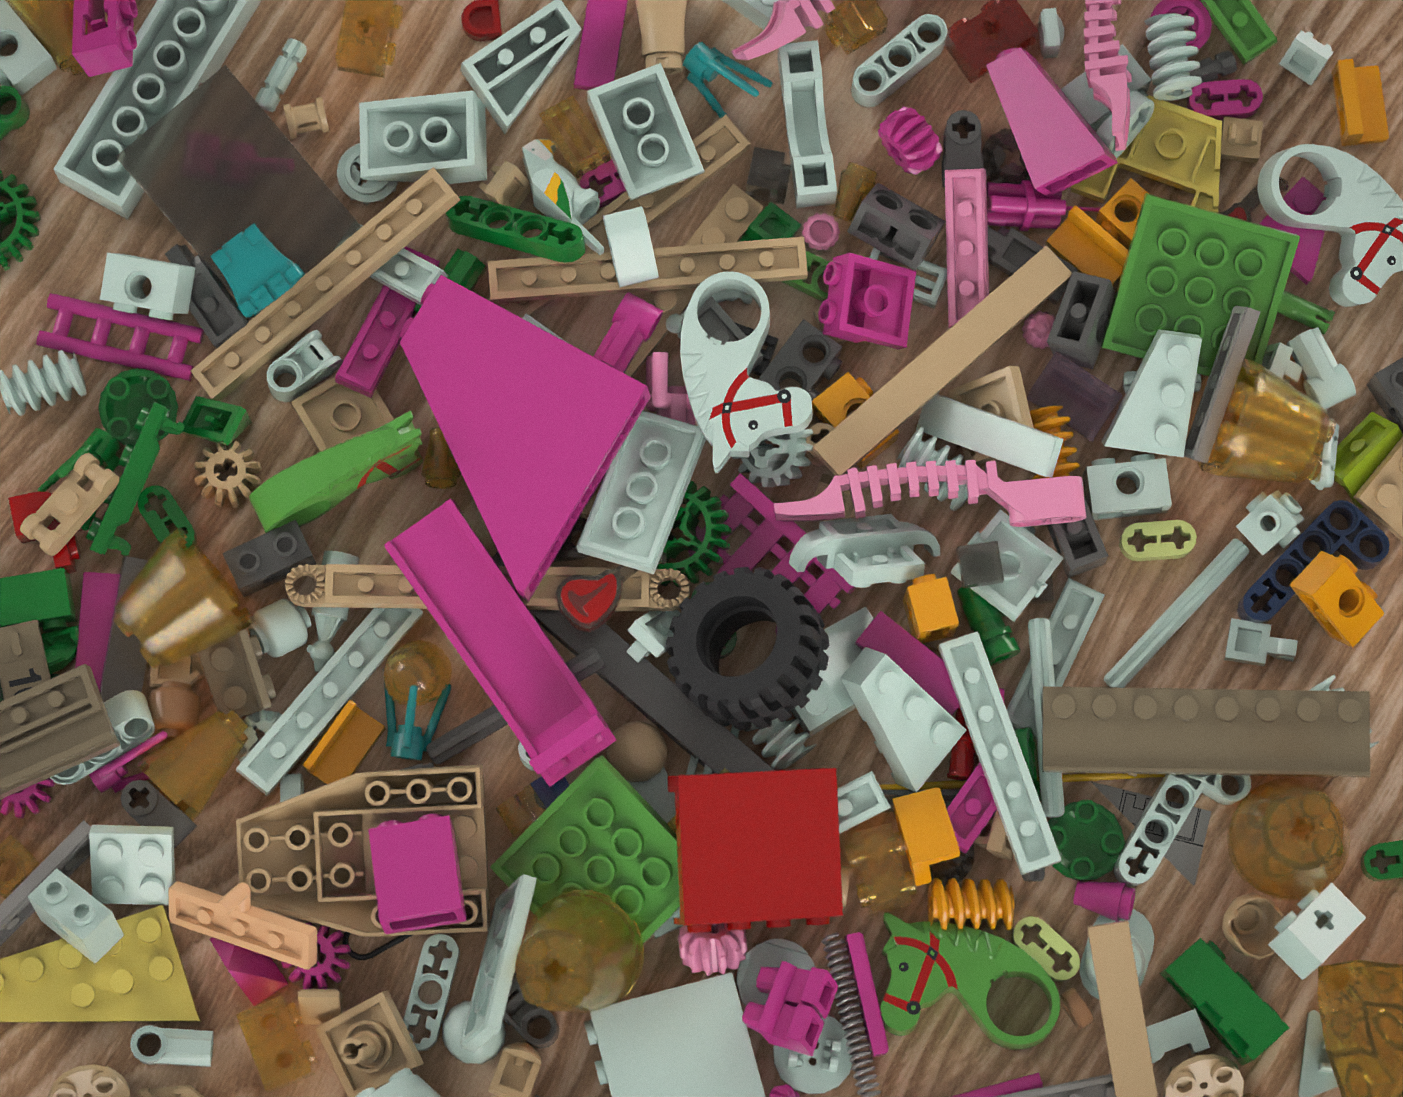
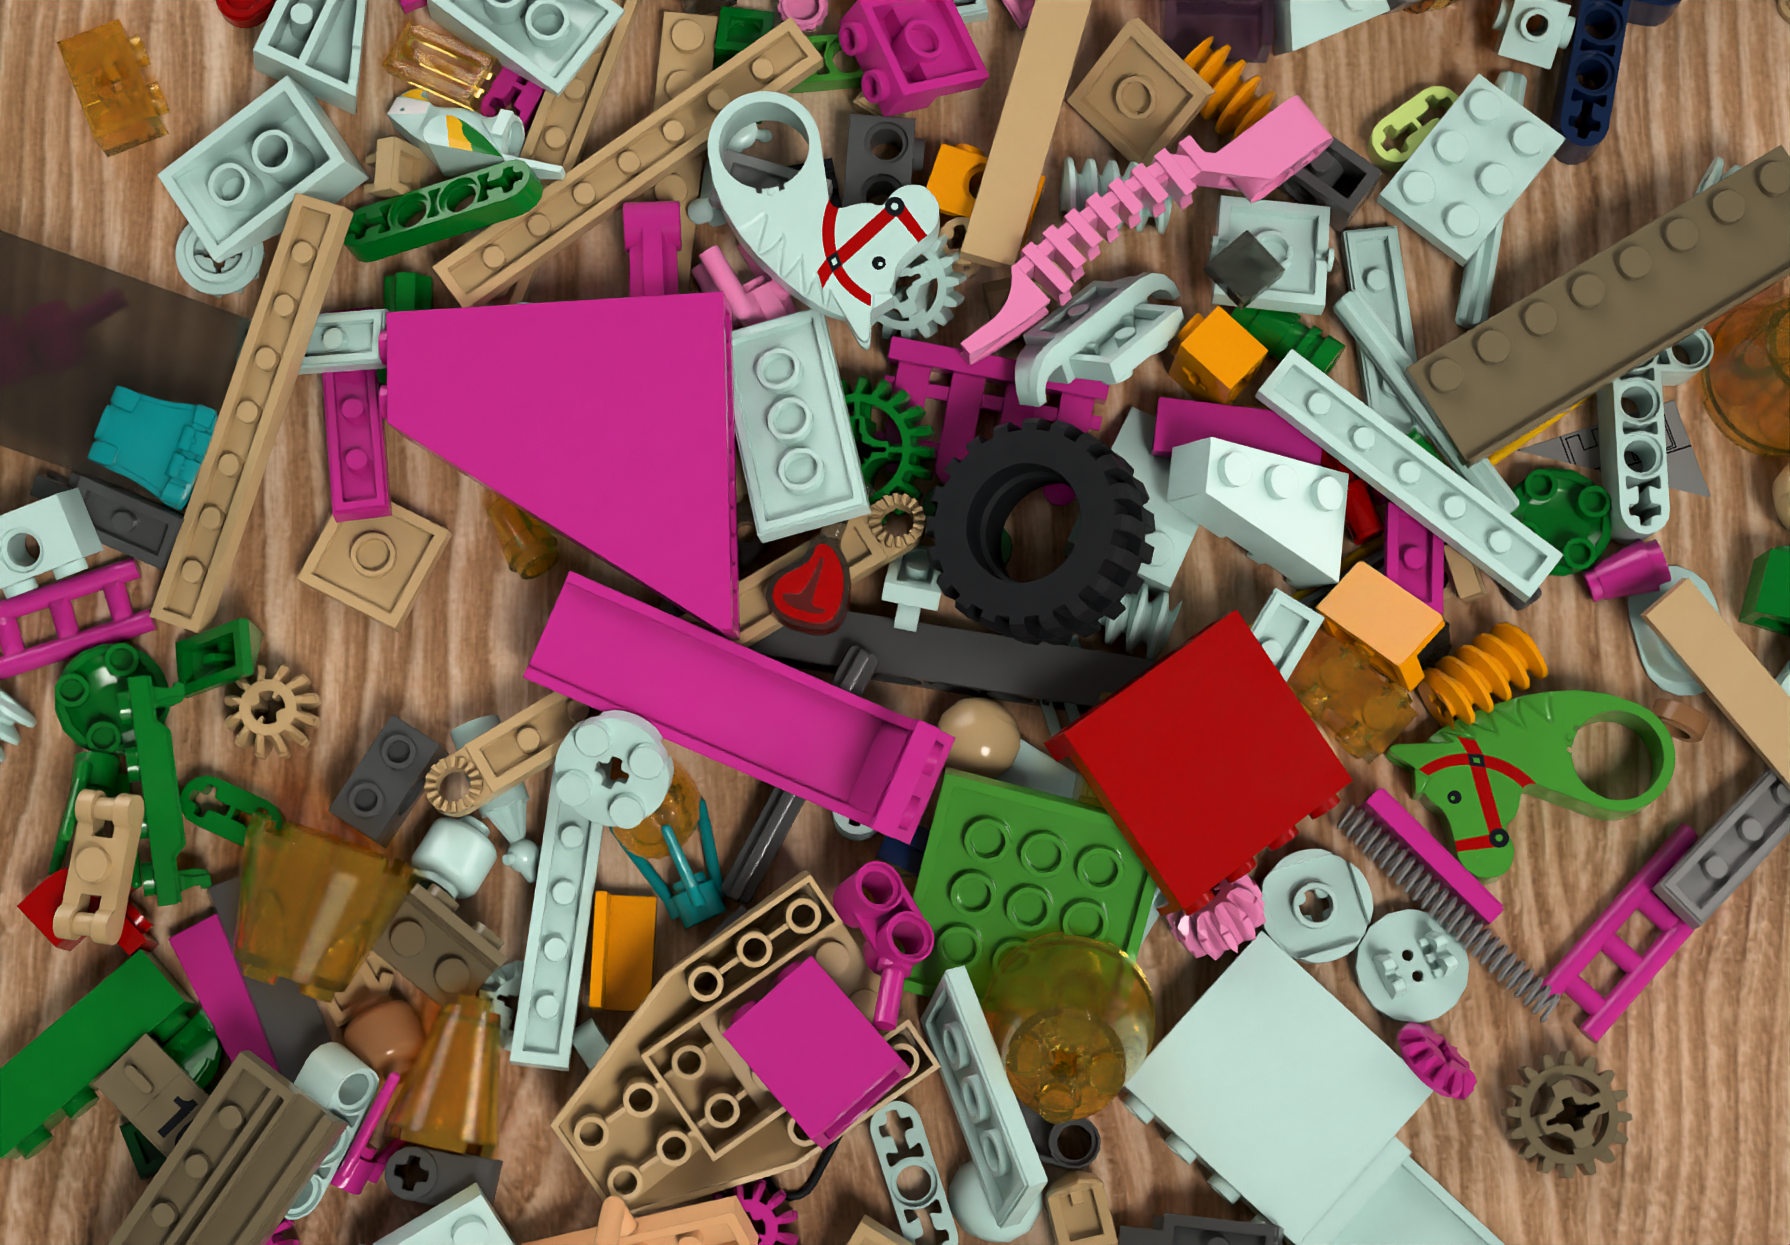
camera: 35 degrees left, 0 degrees up
(281, 74) = (41, 197): light aqua axle -> none
(304, 366) = (289, 520): light aqua piece -> none
(306, 118) = (104, 232): tan bush -> none
(330, 476) = (401, 637): bright green animal -> none
(383, 639) = (591, 792): none -> light aqua plate
(513, 823) = (890, 915): none -> dark pink beam
(630, 246) = (595, 143): light aqua beam -> none
(793, 1007) = (1365, 925): dark pink hips -> none
(991, 435) = (1158, 114): light aqua tile -> none
(1053, 942) = (1598, 661): yellowish green beam -> none
(1108, 502) = (1365, 64): light aqua brick -> none
(1171, 588) = (1470, 170): none -> light aqua plate
(1251, 643) = (1601, 179): light aqua plate -> none
(1338, 598) = (1666, 66): light orange brick -> none

